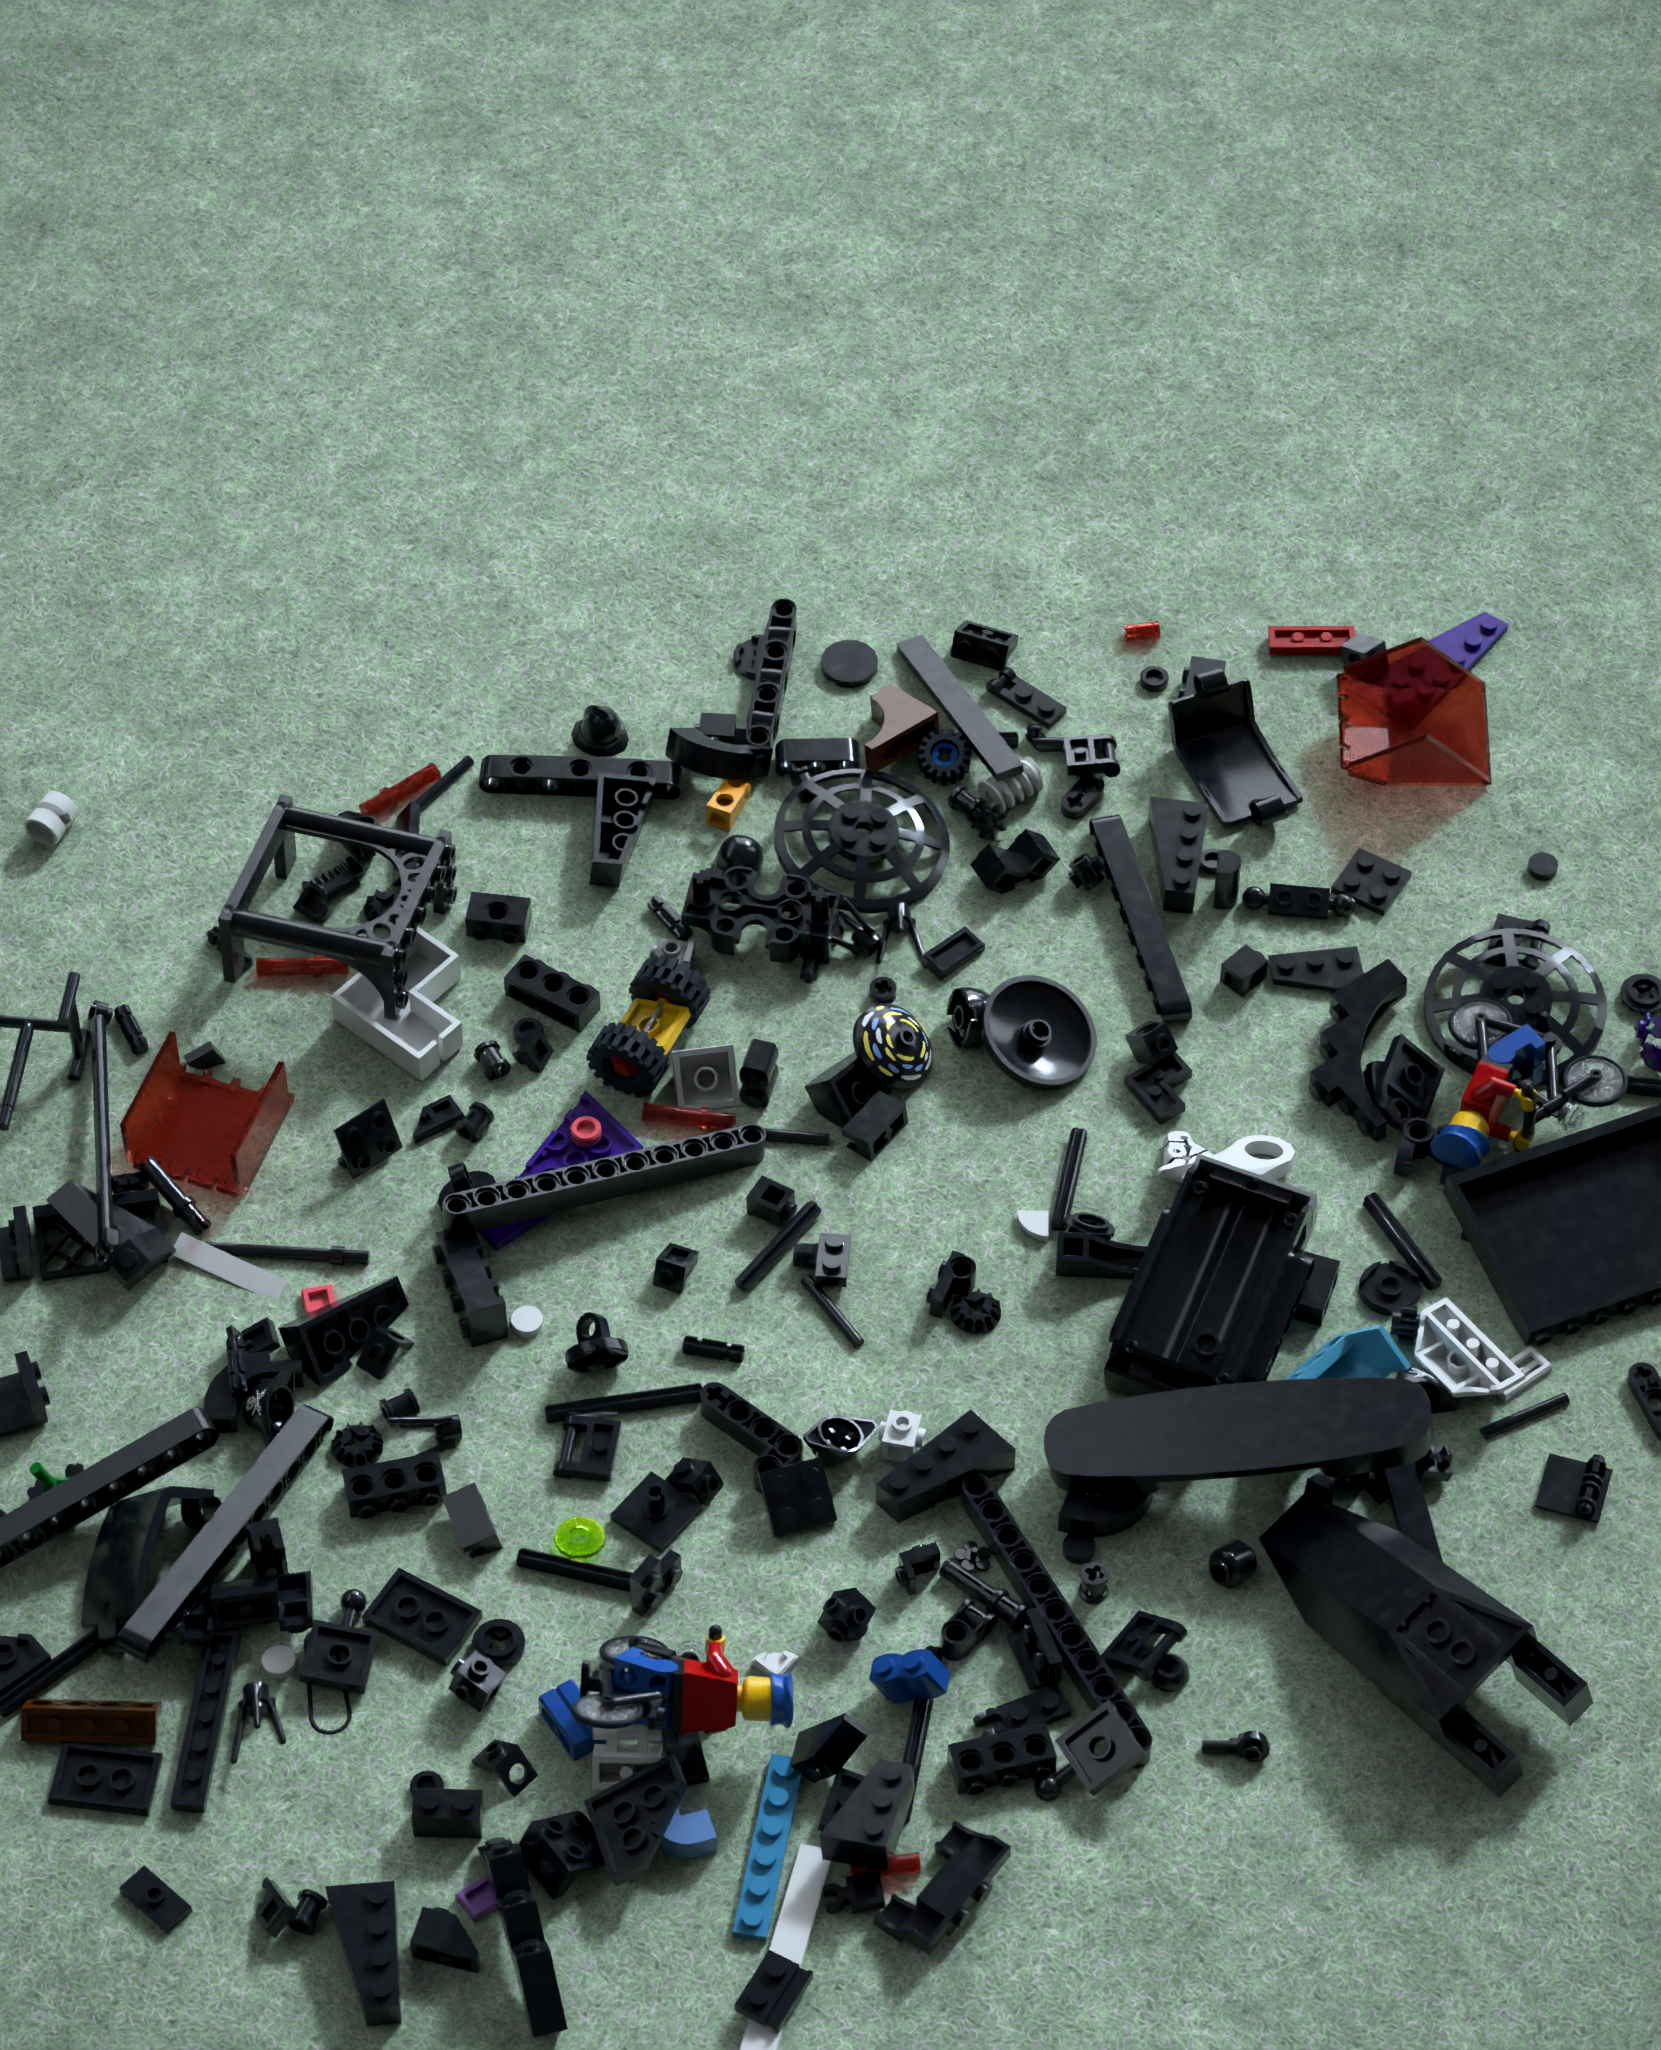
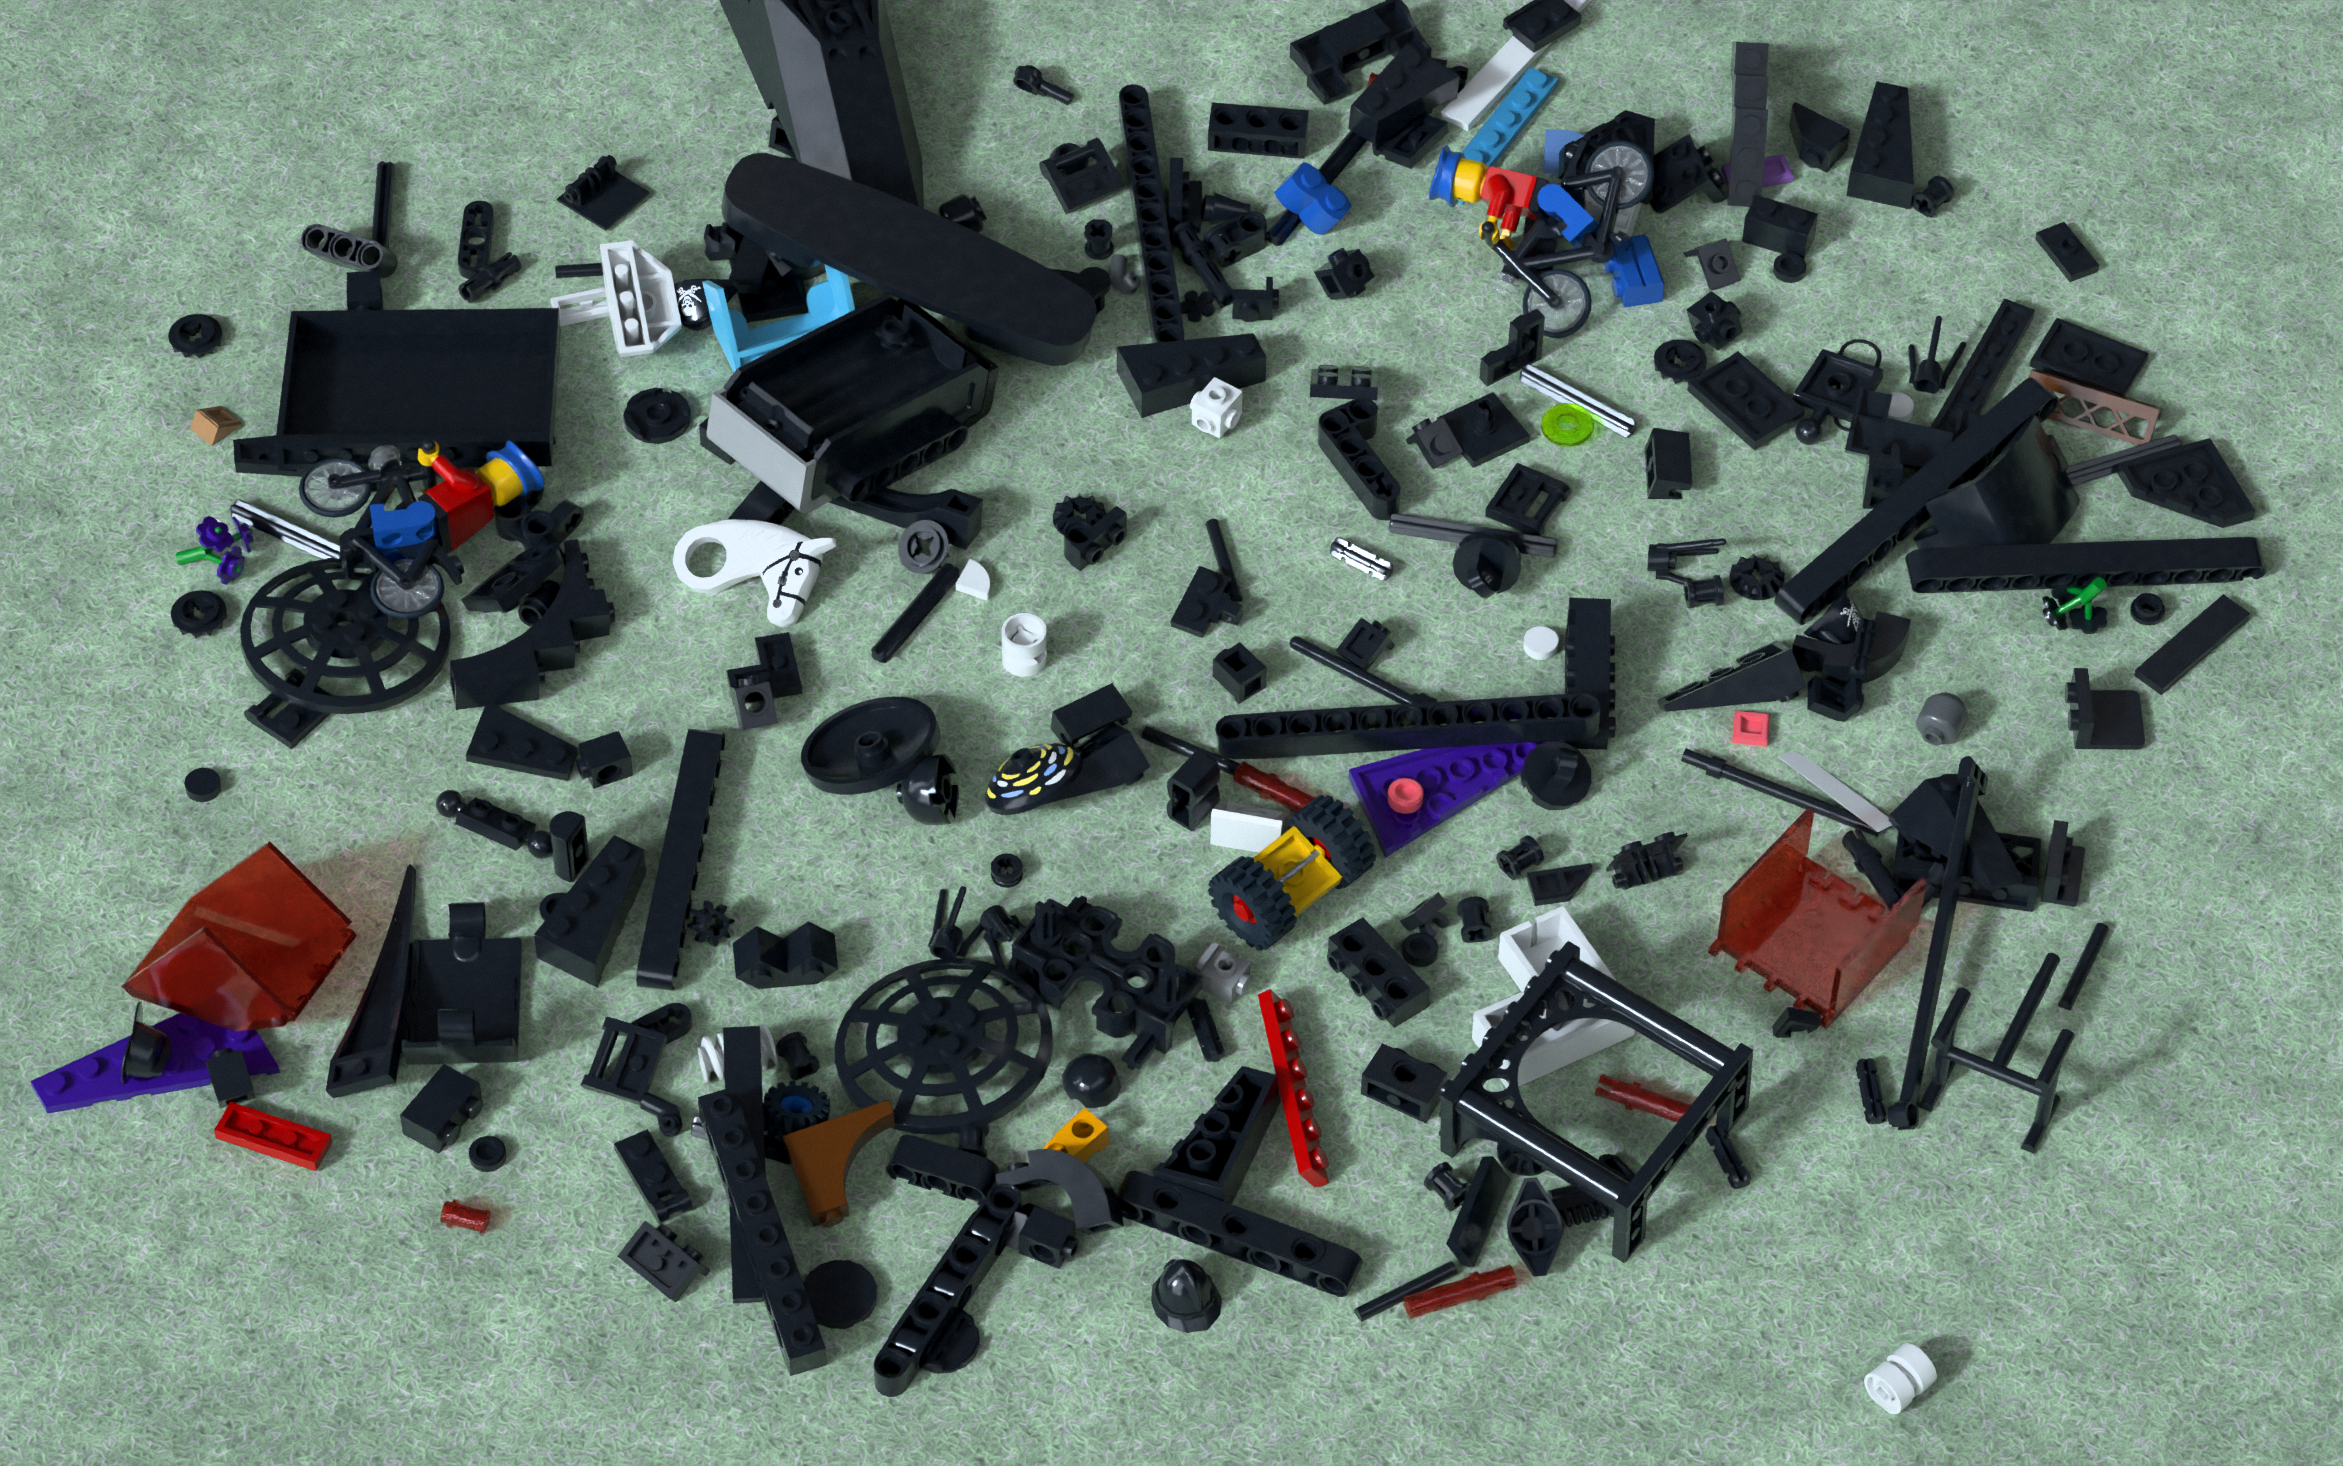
camera: 160 degrees left, 0 degrees up
(153, 1347) = (1942, 718): none -> dark grey head
(275, 1909) = (1962, 205): black tile -> none
(380, 1477) = (1735, 517): black brick -> none
(381, 1351) = (1700, 648): black bracket -> none
(582, 889) = (1293, 1090): none -> red plate
(609, 1227) = (1357, 674): none -> black piece
(775, 1662) = (1426, 272): white tile -> none
(778, 1246) = (1252, 634): black axle -> none
(827, 1747) = (1411, 167): black slope -> none
(839, 1437) = (1281, 415): black hat -> none
(921, 656) = (762, 1231): none -> black brick
(952, 953) = (907, 889): black tile -> none
(960, 1162) = (1024, 644): none -> white wheel
(993, 1661) = (1220, 209): none -> black cone
(997, 819) = (786, 1017): black gear -> none
(1038, 1707) = (1224, 166): black hinge -> none
(1056, 1559) = (1119, 278): none -> dark grey arm
(1079, 1745) = (1172, 94): black plate -> none
(1284, 716) = (372, 1042): none -> black plate
(1371, 881) = (400, 826): black plate -> none
(1402, 1241) = (617, 452): black axle -> none
(1405, 1324) = (667, 364): black gear -> none
(1437, 634) = (146, 1050): none -> black piece
(1617, 1365) = (489, 277): none -> black pin

